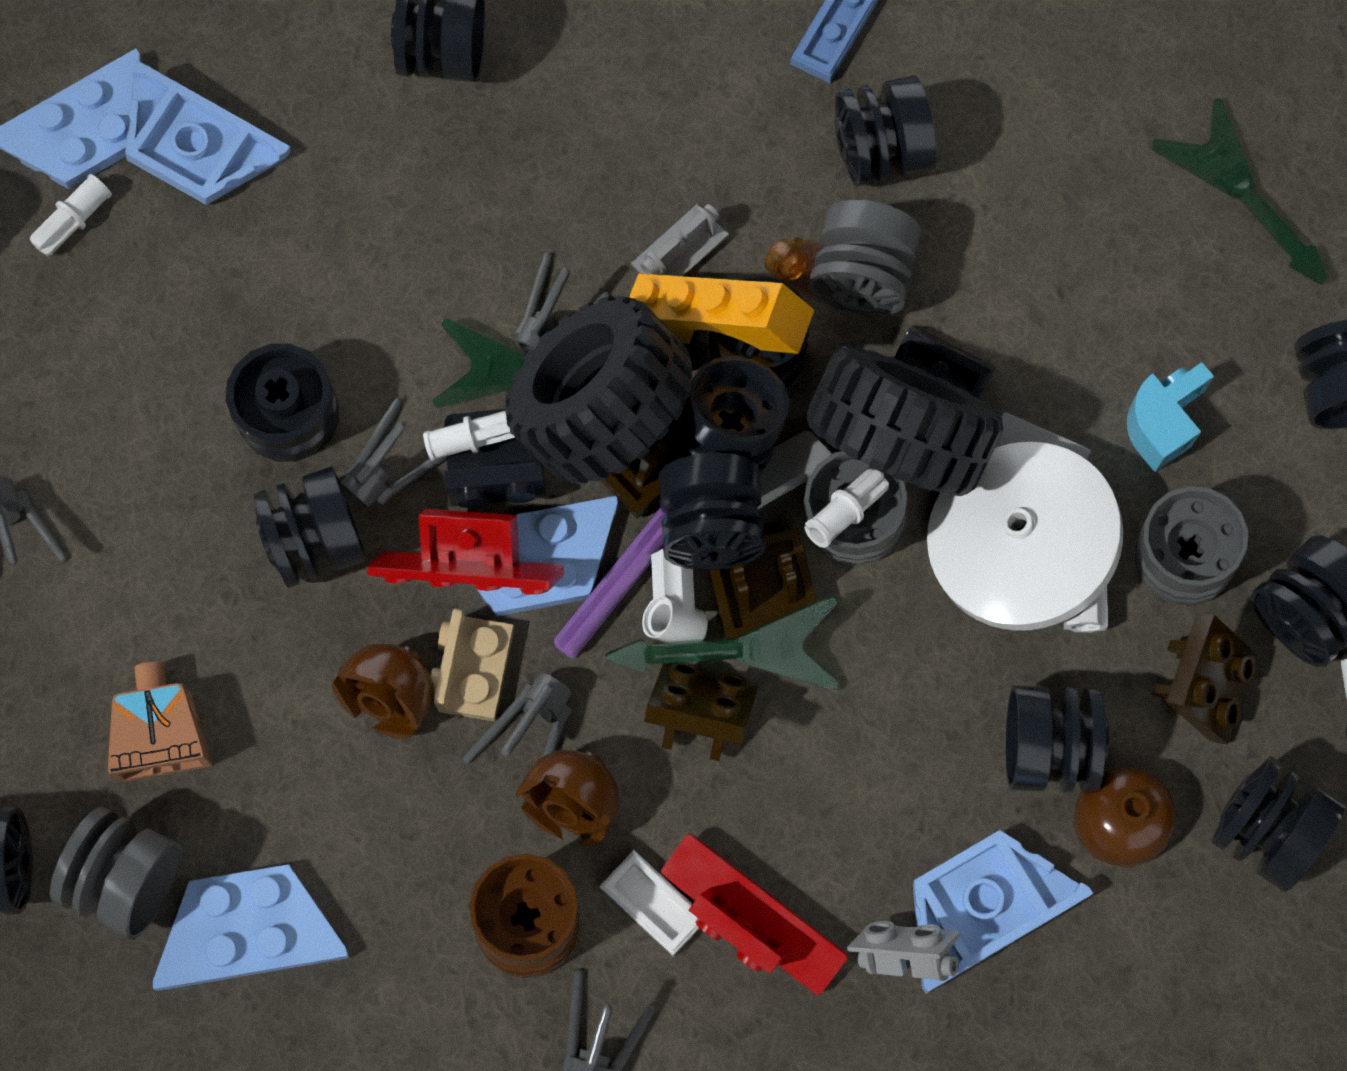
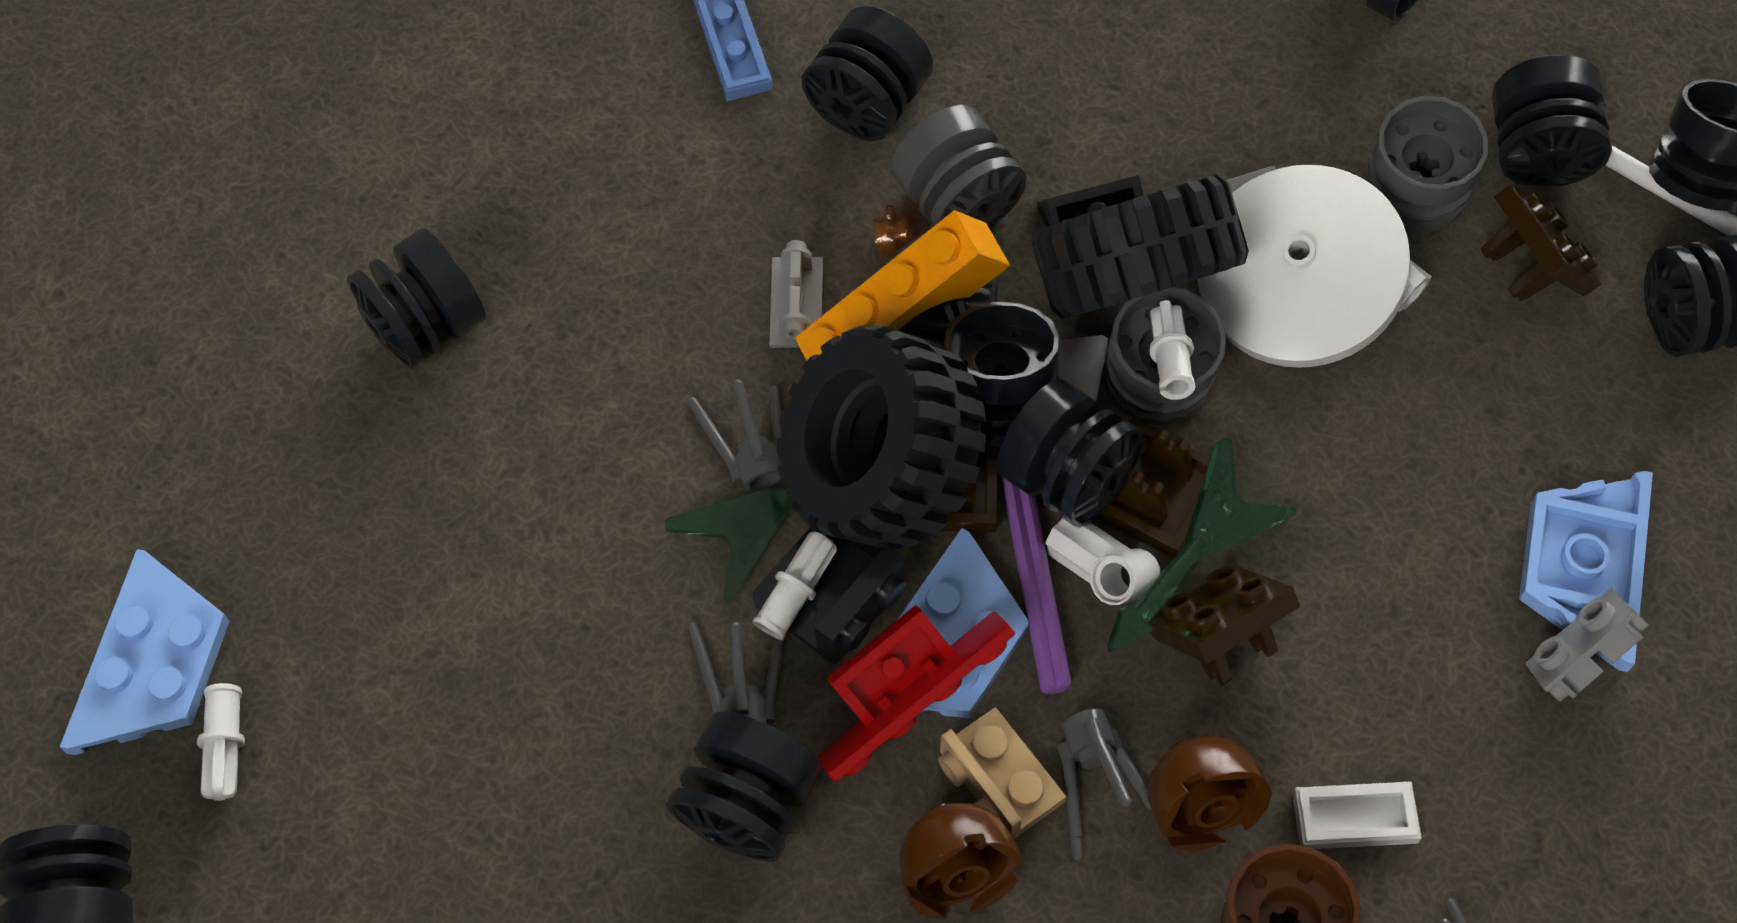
camera: 45 degrees left, 10 degrees down
(193, 140) = (273, 576): light blue wing -> none
(282, 402) = (600, 711): black wheel -> none
(751, 918) = (1442, 744): red bracket -> none
(1063, 739) = (1502, 383): black wheel -> none
(1126, 818) = (1601, 399): reddish brown cylinder -> none
(1156, 416) = (1289, 107): medium azure brick -> none

